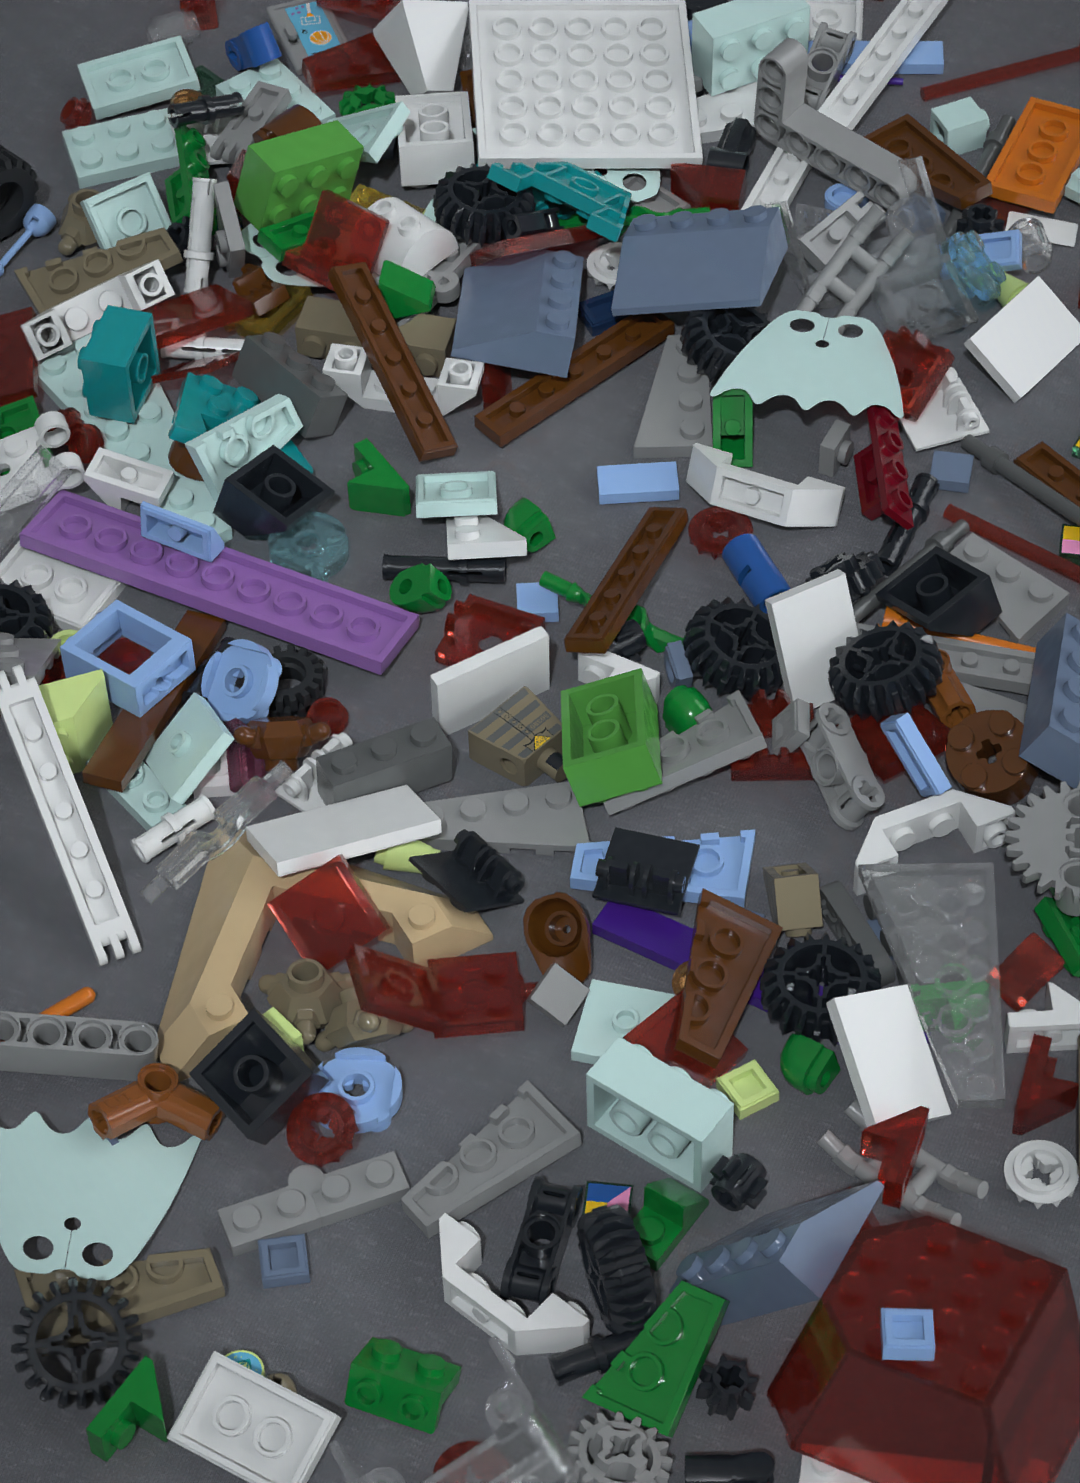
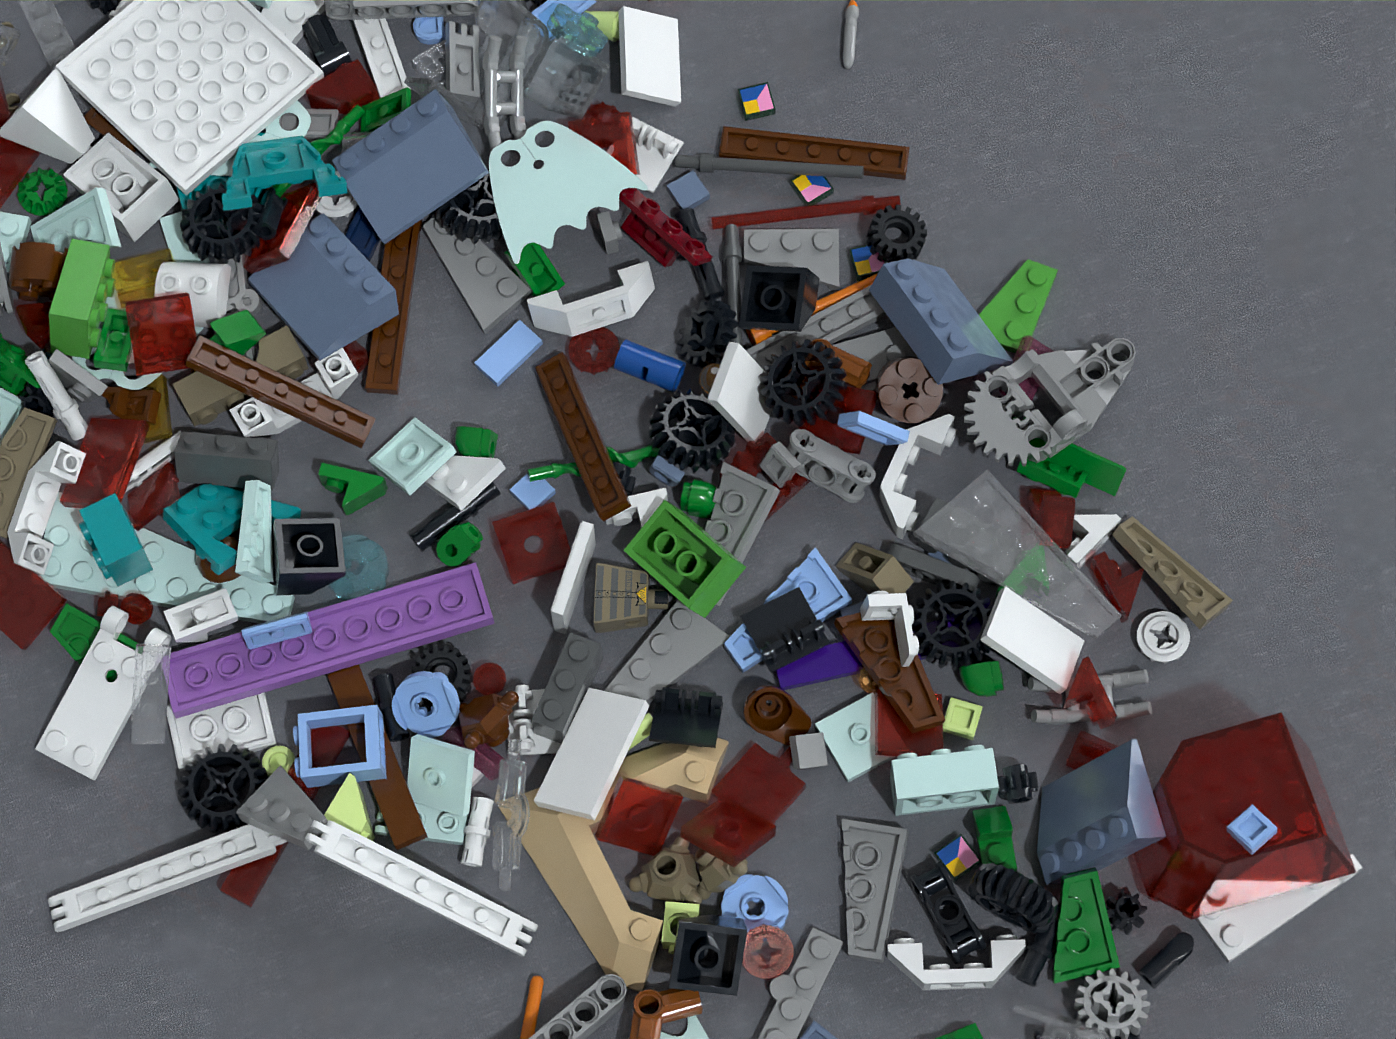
camera: 40 degrees left, 20 degrees up
(766, 915) = (886, 606): none -> white bracket

